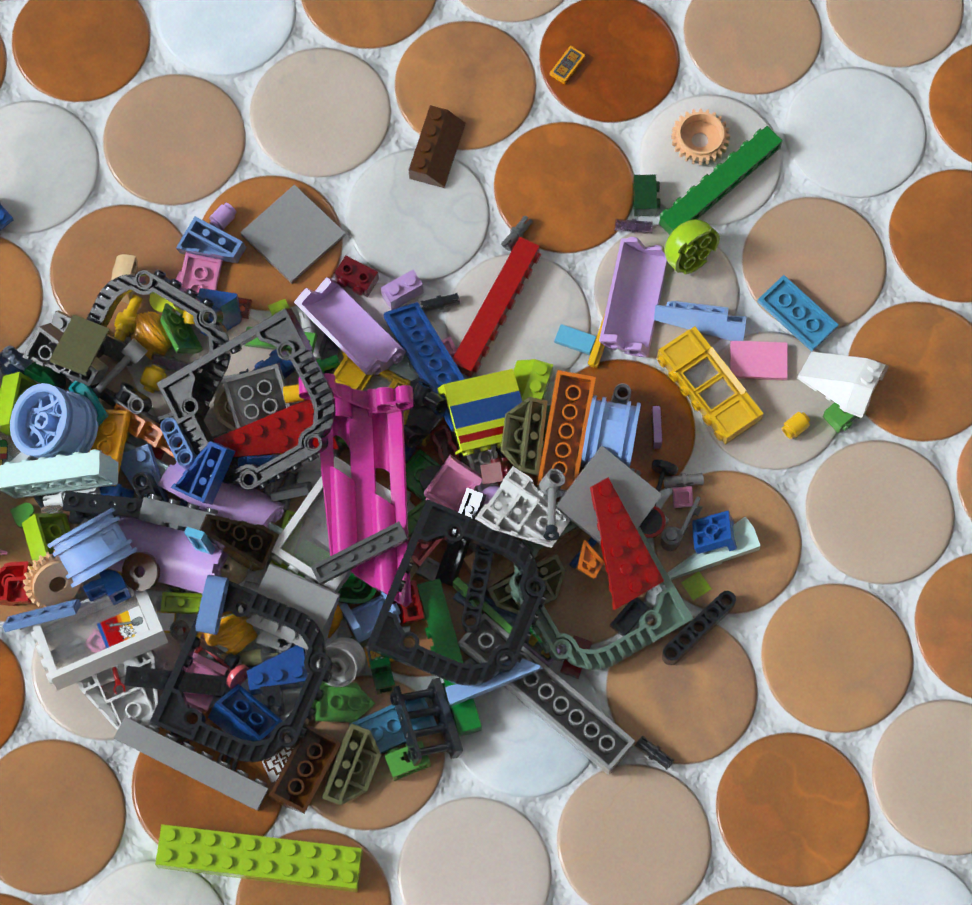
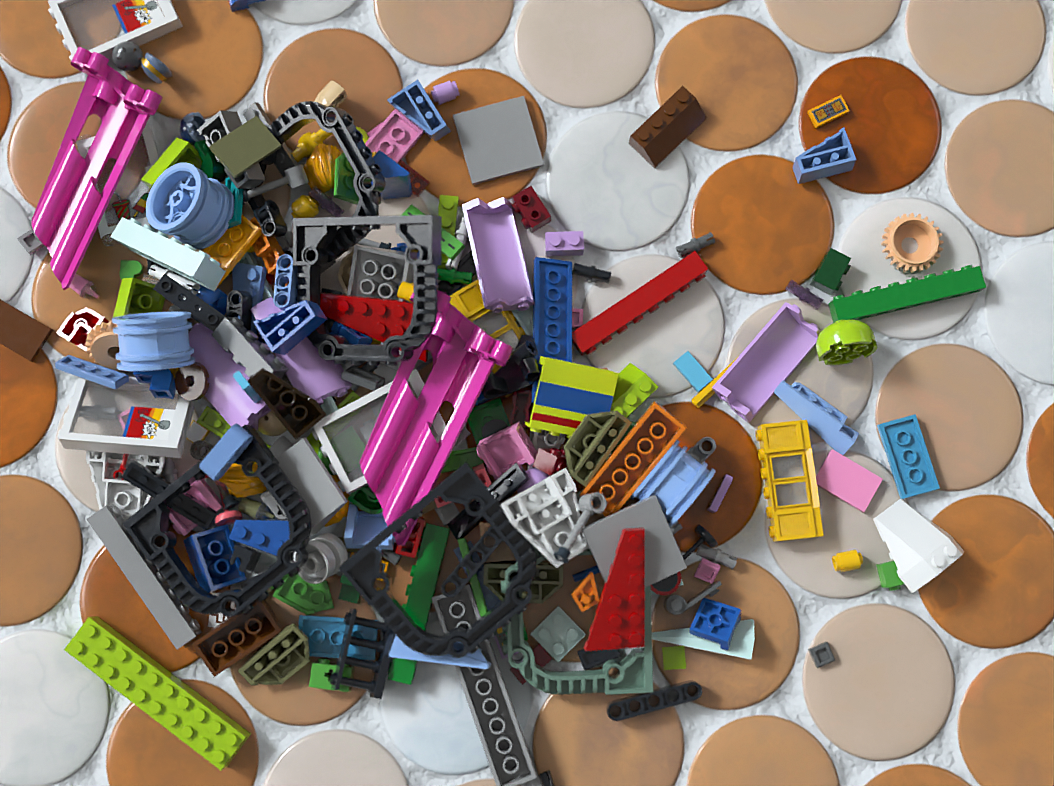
camera: 30 degrees right, 10 degrees up
(359, 553) = (383, 475): dark grey plate -> none
(585, 619) = (558, 634): none -> light aqua plate
(587, 105) = (825, 159): none -> medium blue wedge
(819, 514) = (821, 654): none -> dark grey tile

